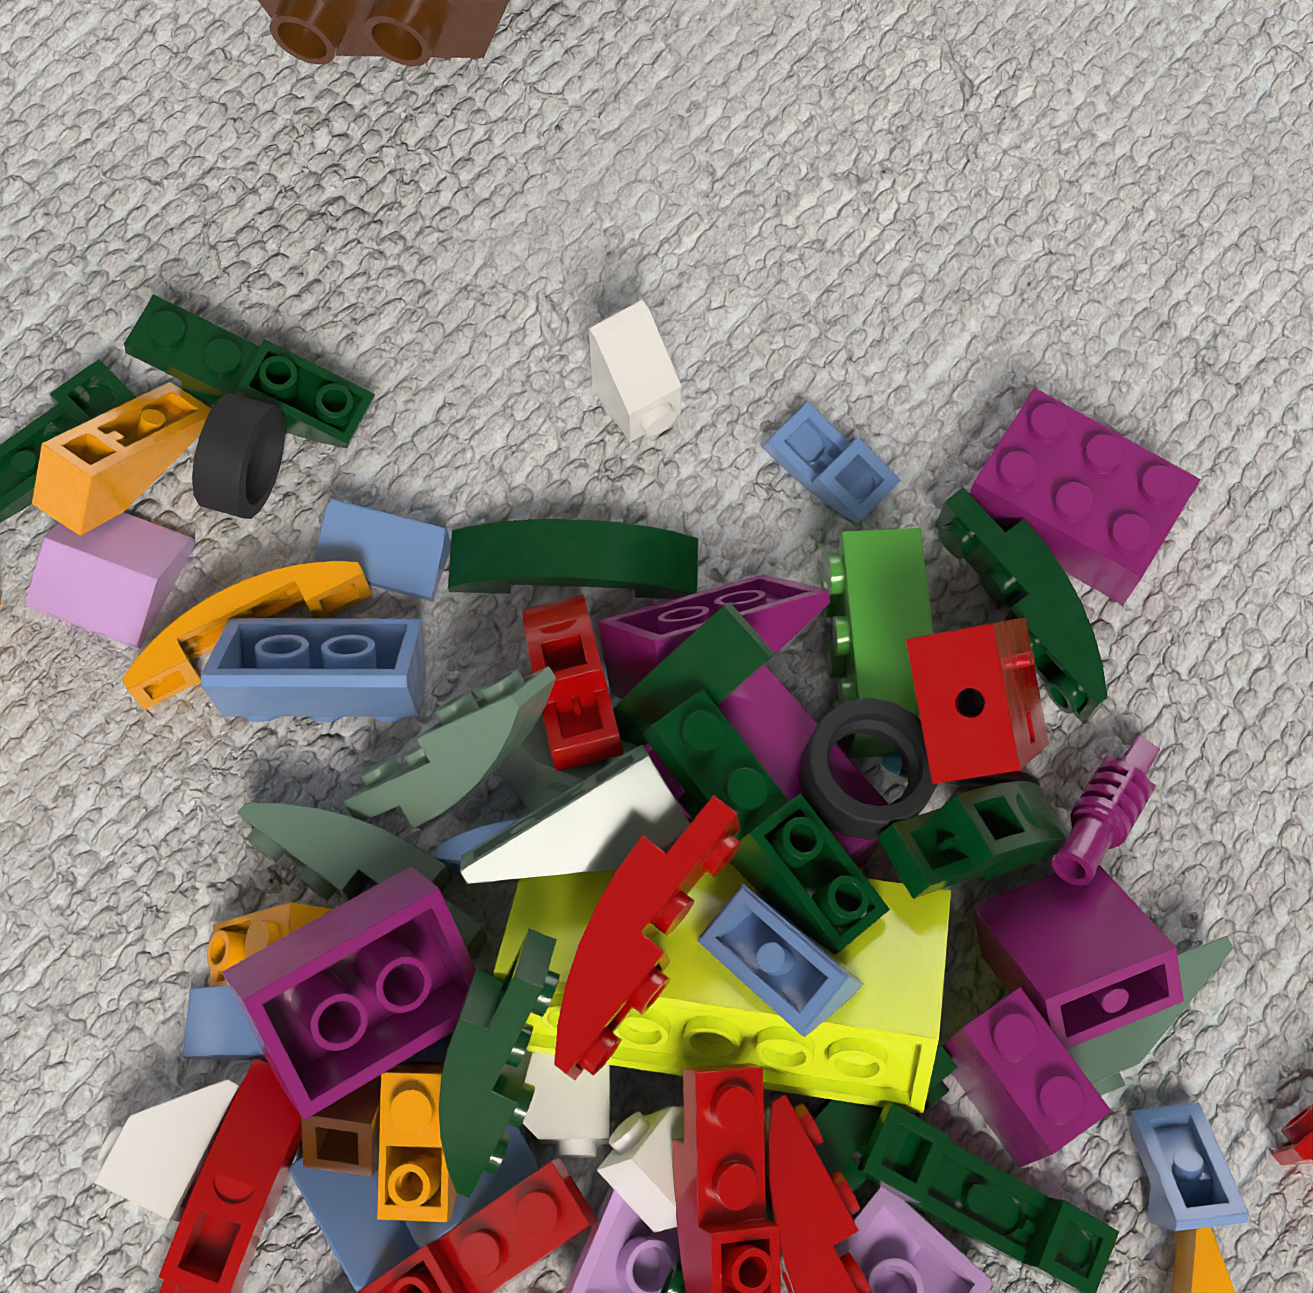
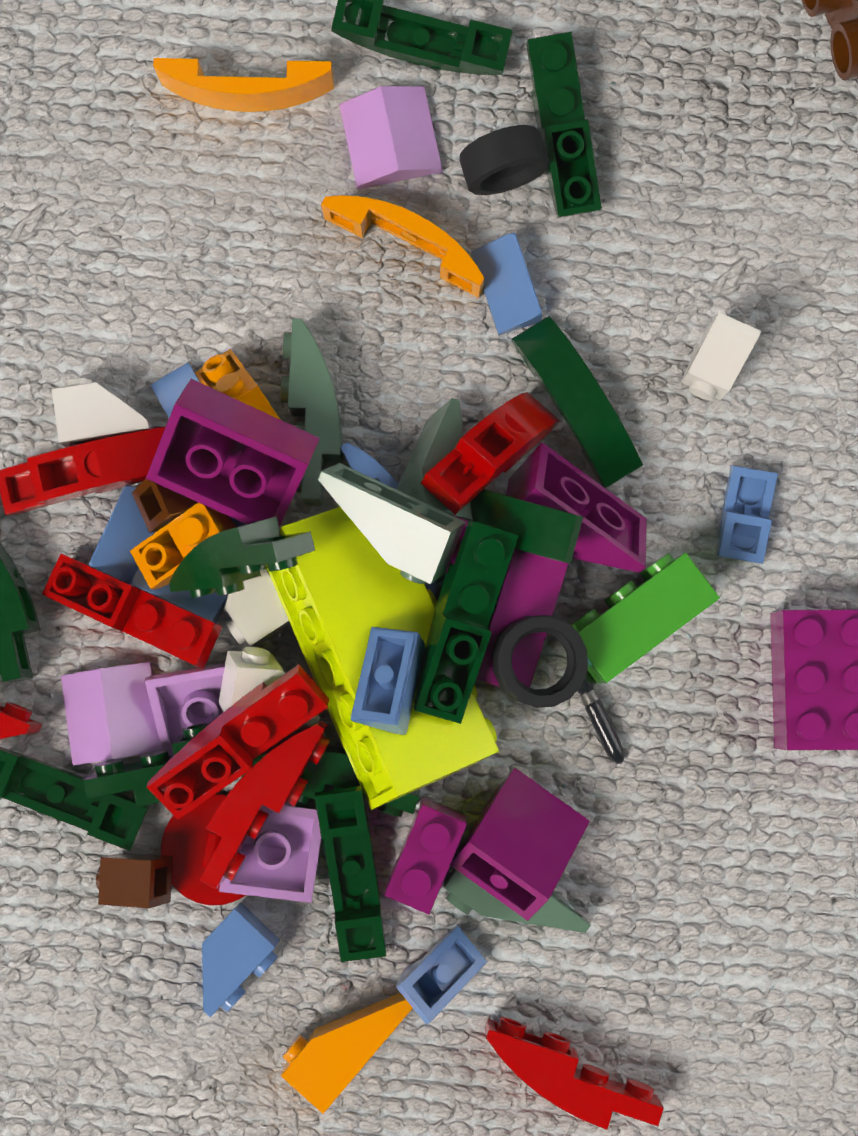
camera: 60 degrees right, 15 degrees up
(115, 457) = (459, 89): light orange slope -> none
(317, 669) = (407, 301): medium blue slope -> none
(457, 751) = (399, 418): sand green slope -> none
(616, 959) = (326, 592): red slope -> none
(974, 835) = (547, 747): dark green slope -> none
(978, 700) = (627, 698): red brick -> none
(1027, 577) = (726, 709): dark green slope -> none
(1106, 812) = (624, 813): magenta hinge -> none

